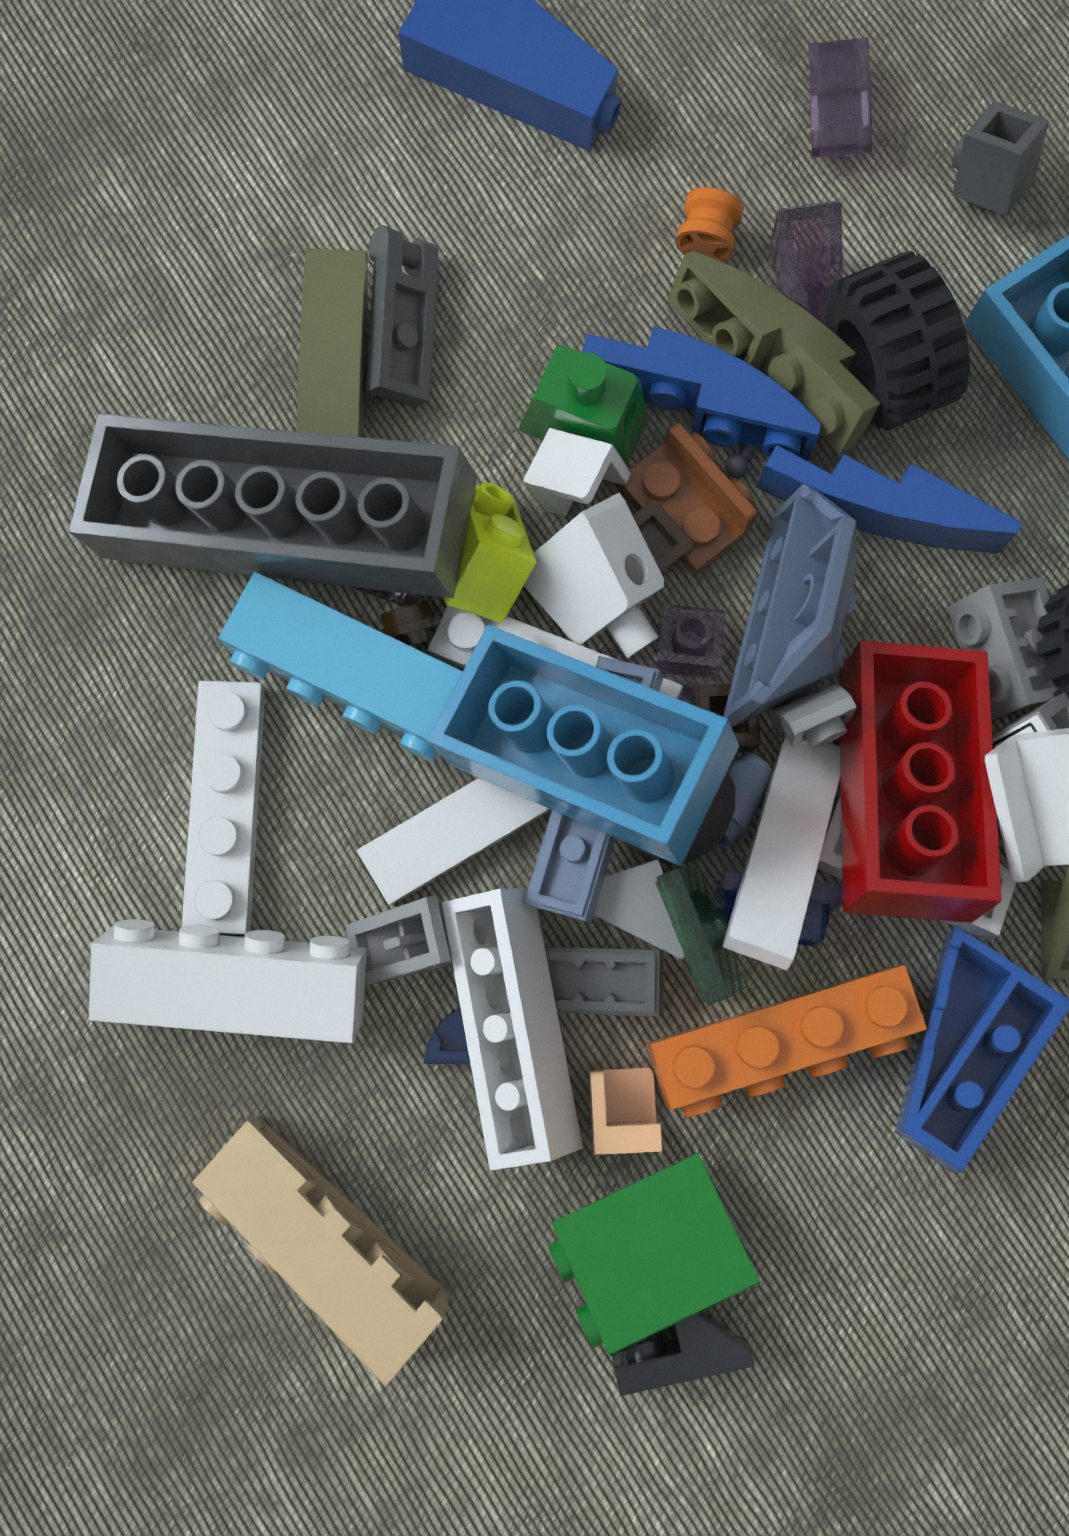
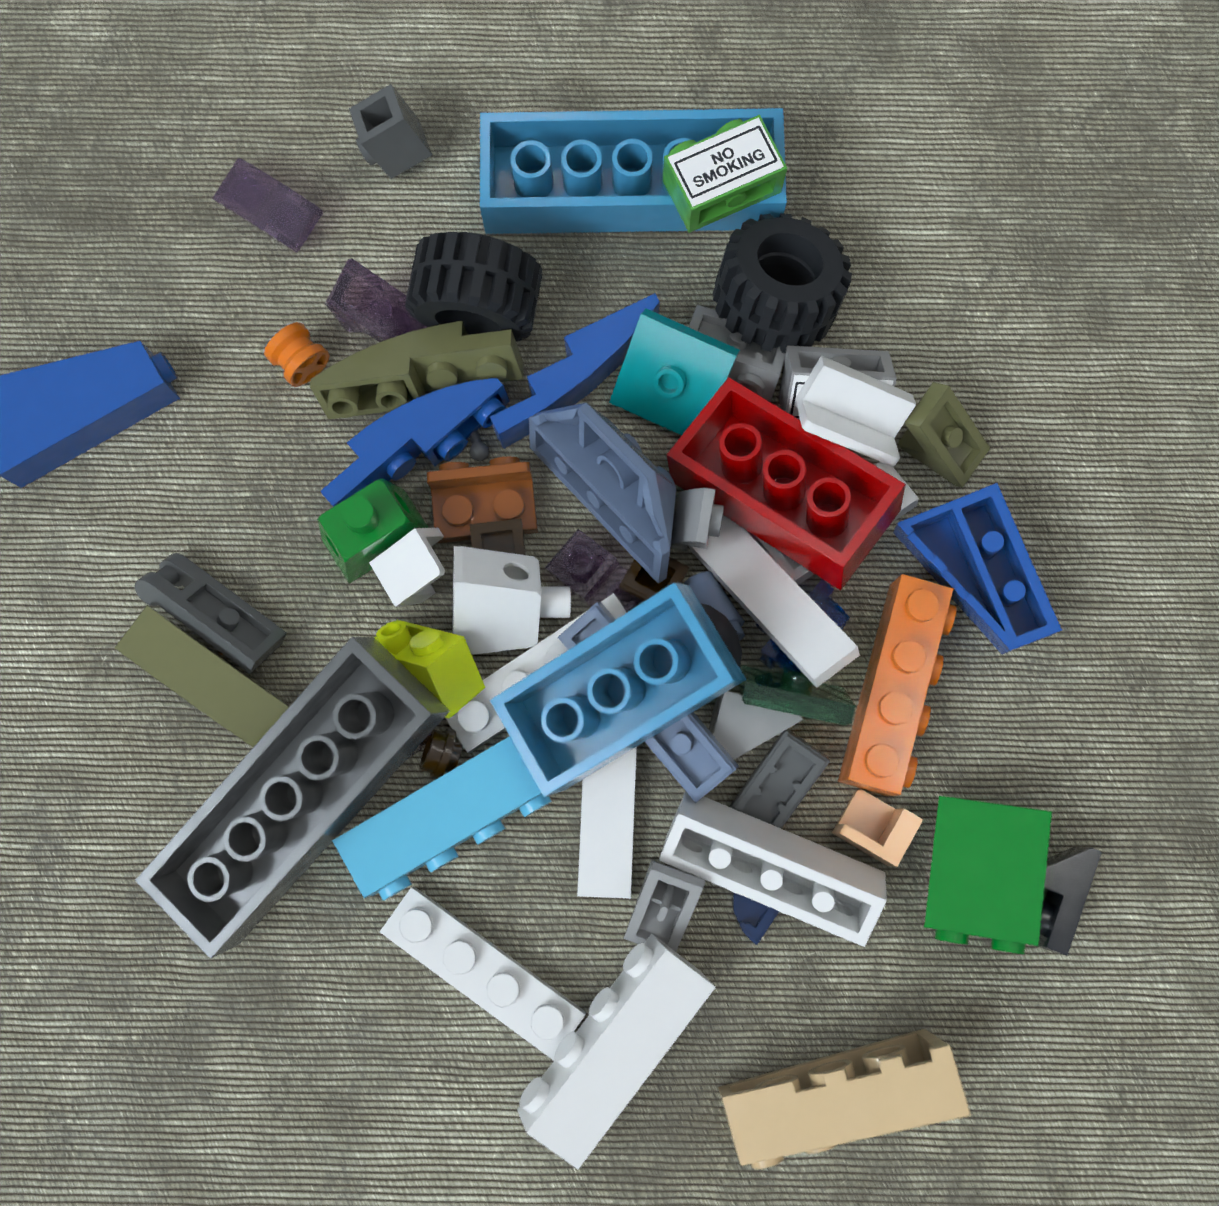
camera: 55 degrees left, 0 degrees up
(952, 591) = (671, 372): none -> teal plate

